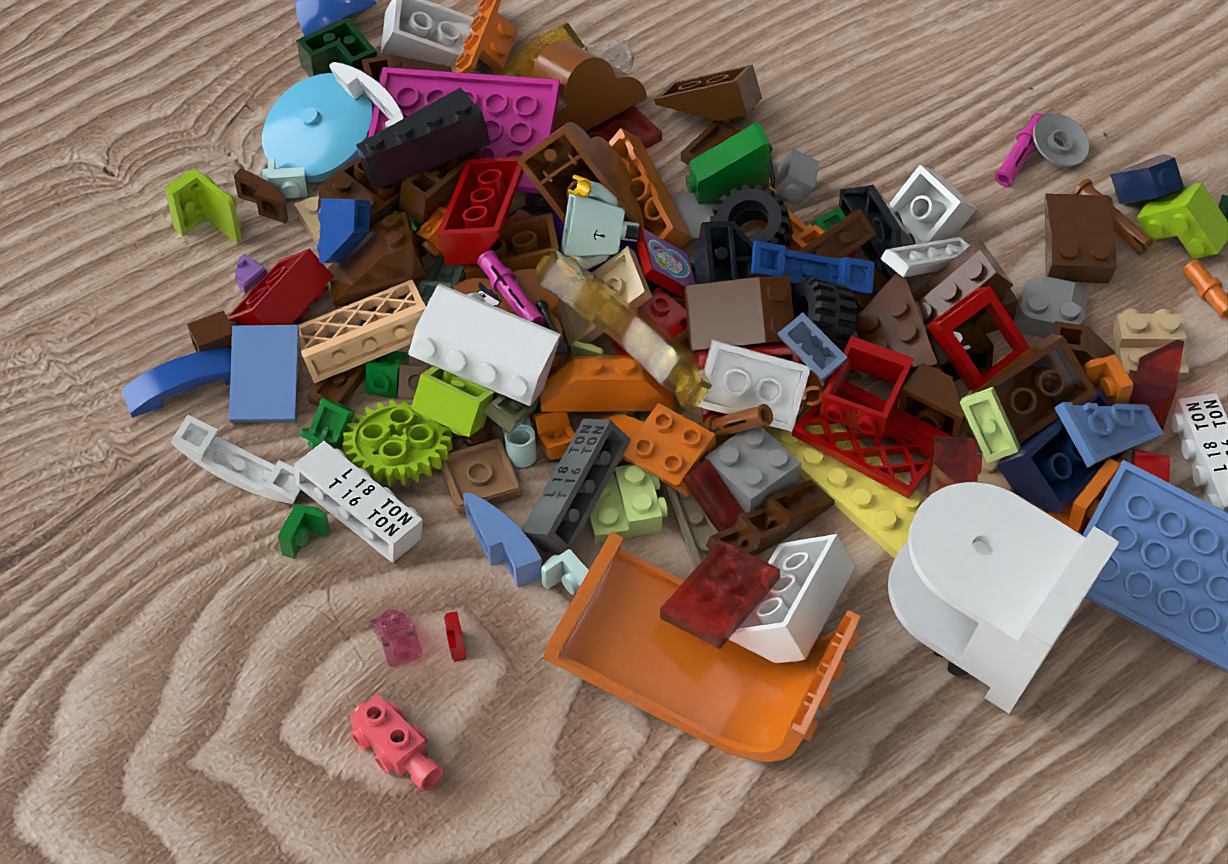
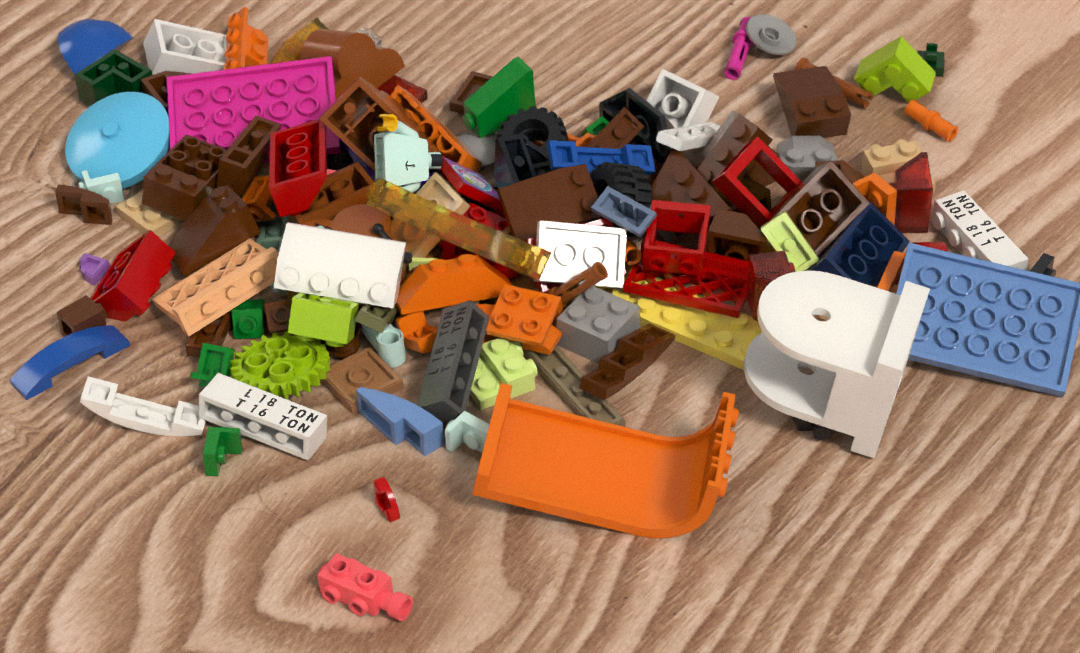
camera: 15 degrees left, 10 degrees down
(197, 198) = (36, 214): lime bracket -> none
(264, 374) = (140, 338): medium blue tile -> none
(342, 227) = (175, 205): blue slope -> none
(357, 82) = (147, 91): white slope -> none
(397, 636) = (336, 510): clear pink bracket -> none
(424, 140) = (229, 121): black wedge -> none
(493, 266) = (339, 216): dark pink pin -> none
(713, 496) = (573, 348): clear red tile -> none
(715, 96) = (467, 52): reddish brown slope -> none
(720, 594) = (607, 412): clear red plate -> none
(796, 176) = (558, 98): light grey brick -> none
(799, 604) = (668, 407): white slope -> none
(1107, 430) = (886, 231): medium blue wing -> none
(1147, 179) = (854, 47): dark blue slope -> none

